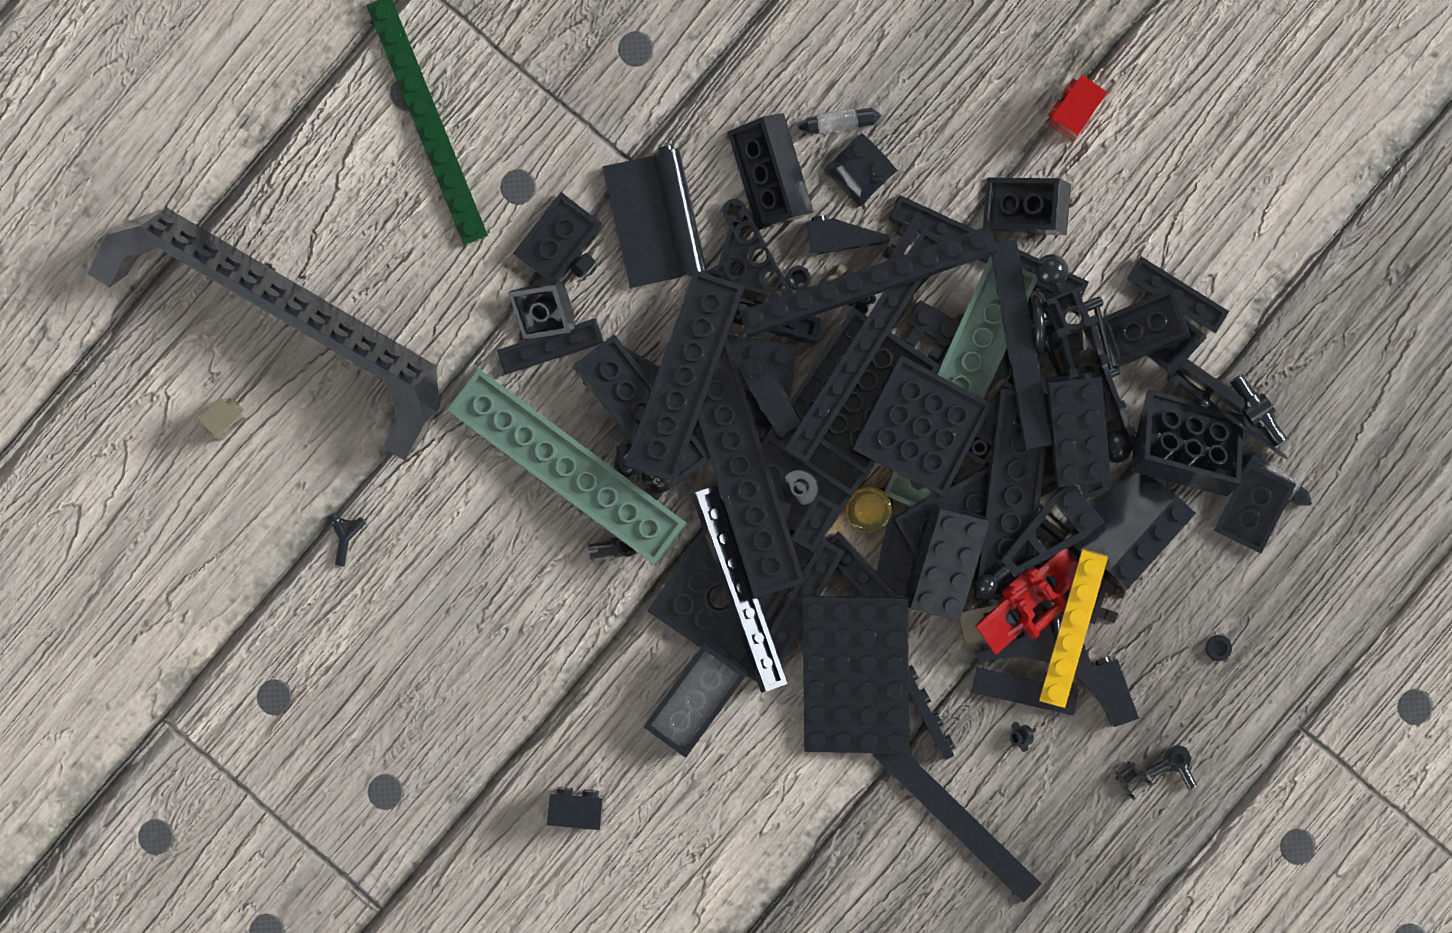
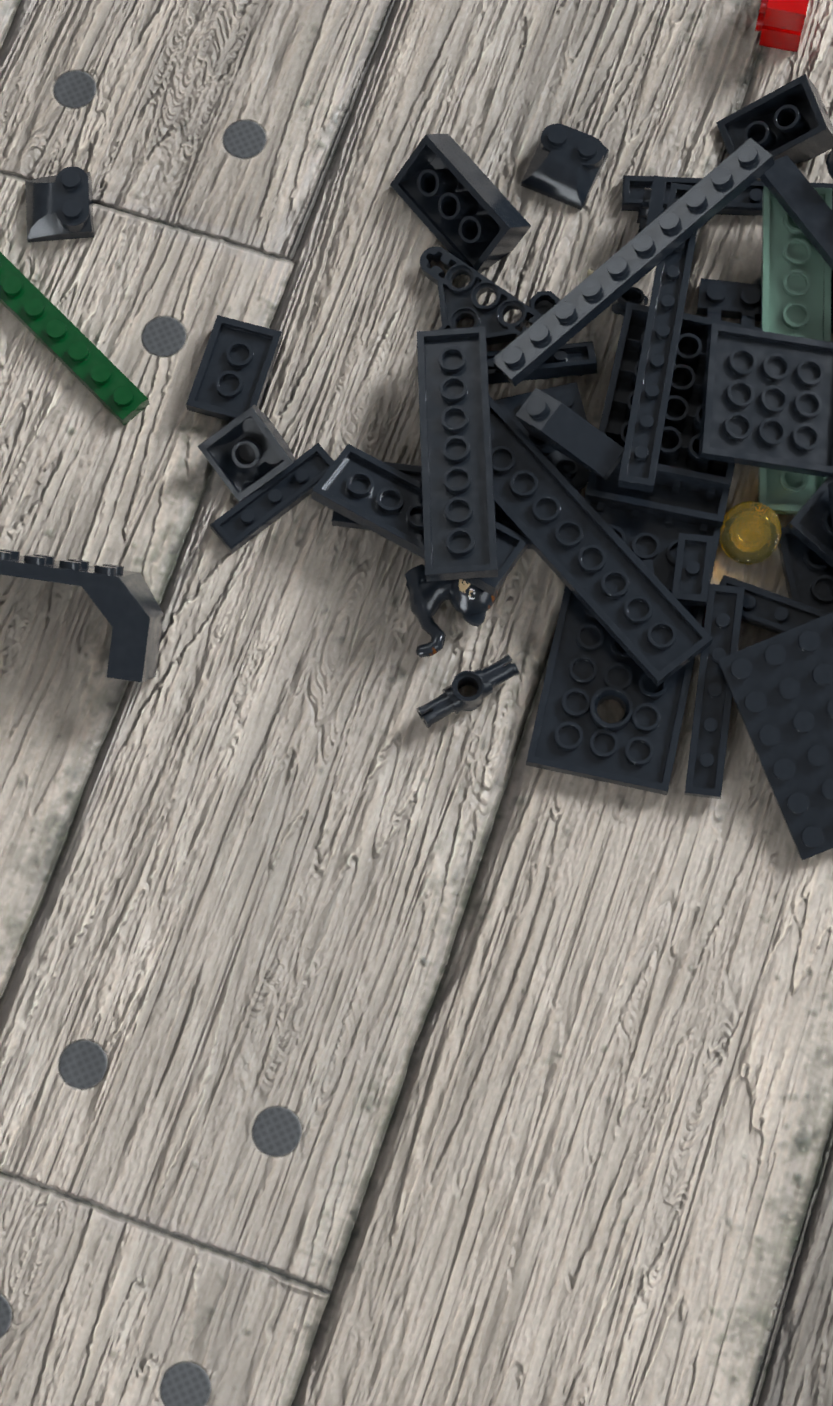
camera: 20 degrees left, 15 degrees down
(344, 536) = (101, 821): black piece -> none
(478, 53) = (60, 206): none -> black slope
(567, 466) = (355, 622): sand green plate -> none
(575, 809) = (540, 1045): black brick -> none
(582, 265) = (277, 388): black tile -> none
(654, 218) = (343, 305): black door -> none
(696, 698) = (637, 839): clear brick -> none
(738, 589) = (633, 685): black plate -> none
(800, 486) = (654, 534): black piece -> none
(836, 235) = (572, 242): black slope -> none
(839, 121) = (517, 123): piece -> none

